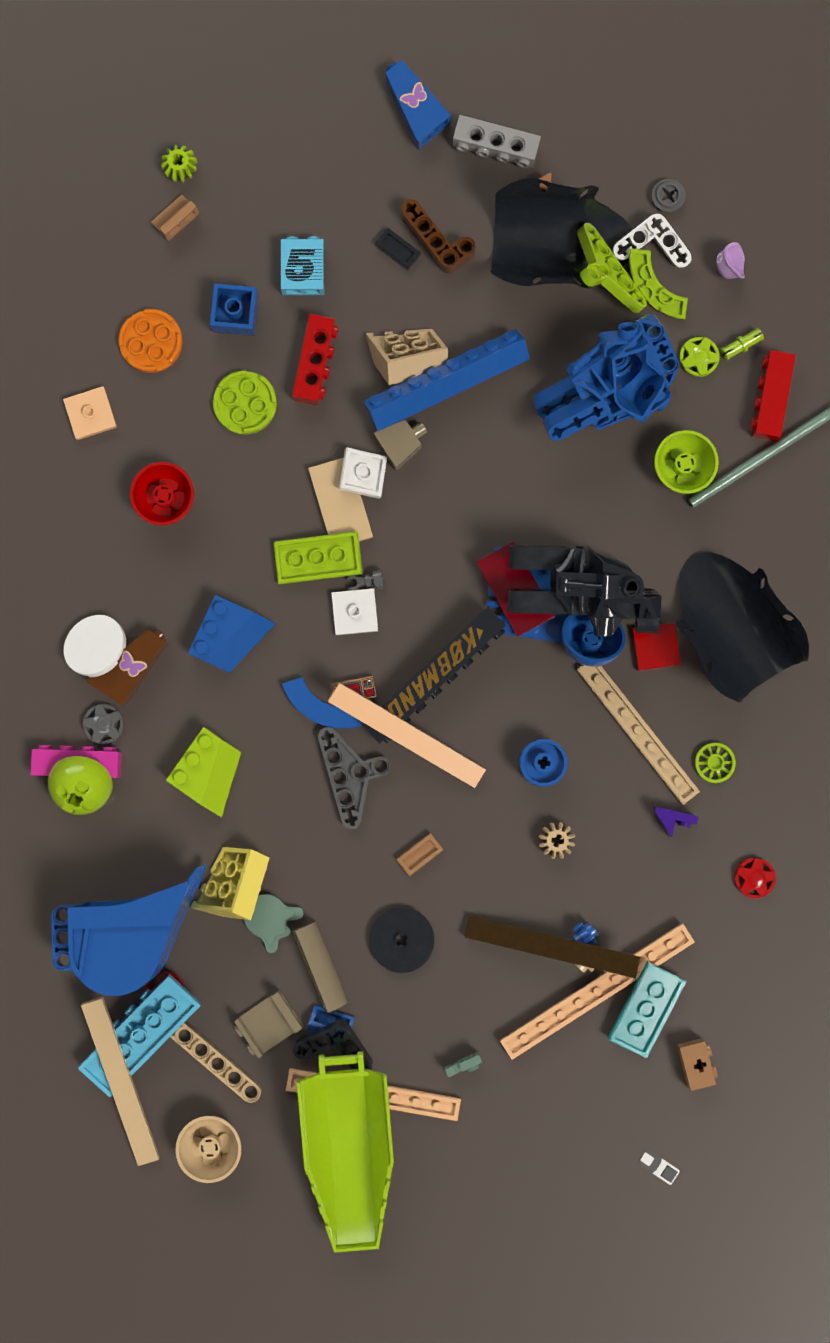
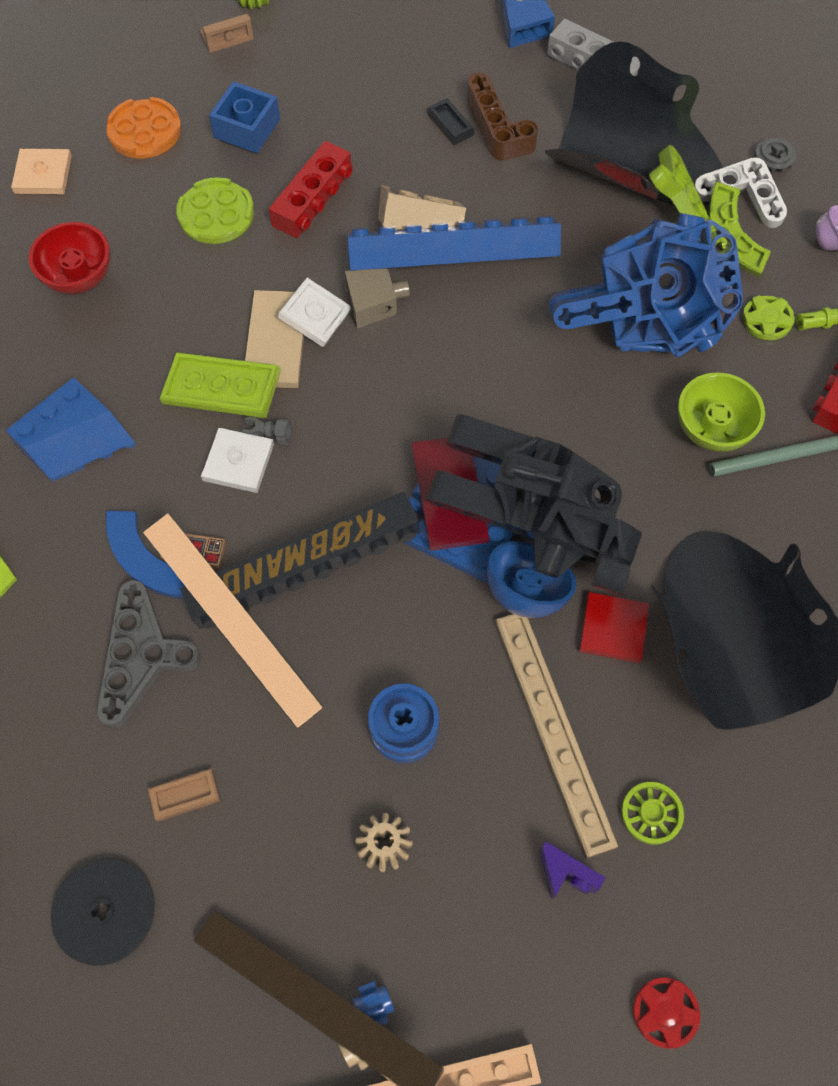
camera: 20 degrees right, 20 degrees down
(302, 266) = (337, 104): medium azure panel -> none

